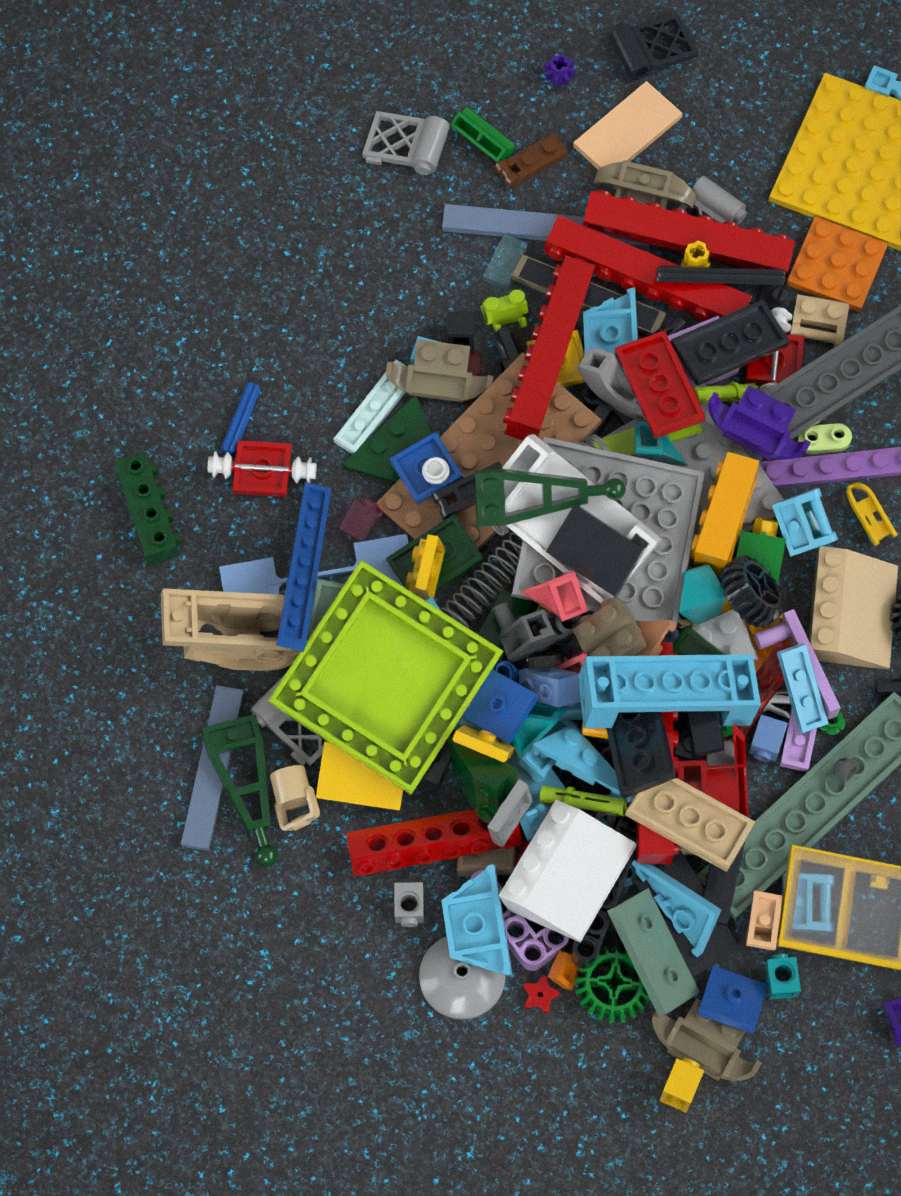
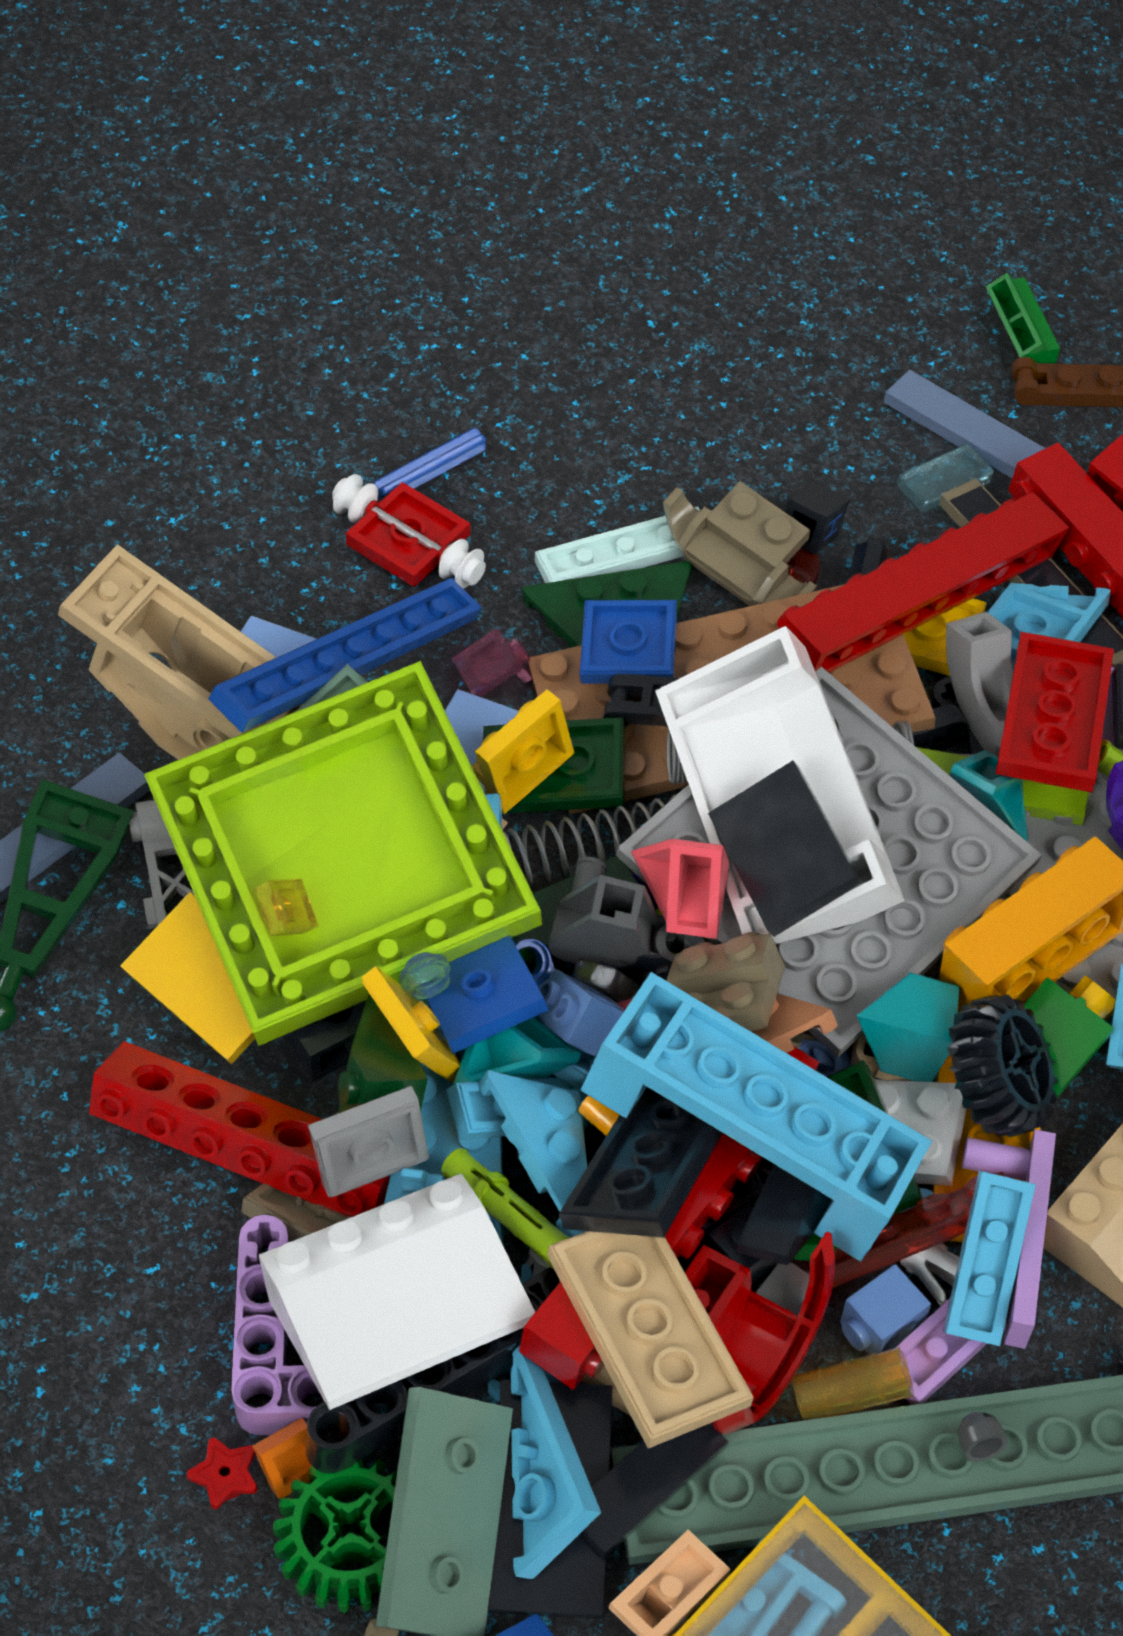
camera: 30 degrees right, 15 degrees down
(147, 508) = (215, 496): dark green brick -> none
(291, 792) = (97, 948): tan piece -> none
(384, 724) = (286, 907): none -> clear yellow plate
(405, 892) = (136, 1182): light grey brick -> none
(425, 146) = (929, 293): light grey piece -> none
(435, 470) = (636, 642): white plate -> none
(454, 994) = (137, 1395): light grey dish -> none
(472, 715) = (425, 975): none -> clear light blue plate
(477, 924) = (202, 1289): medium azure wing -> none
(491, 499) = (675, 686): dark green plate -> none
(505, 310) = (899, 524): lime piece -> none
(777, 781) = (853, 1385): none -> clear yellow axle
(833, 729) = (1010, 1369): green plate -> none

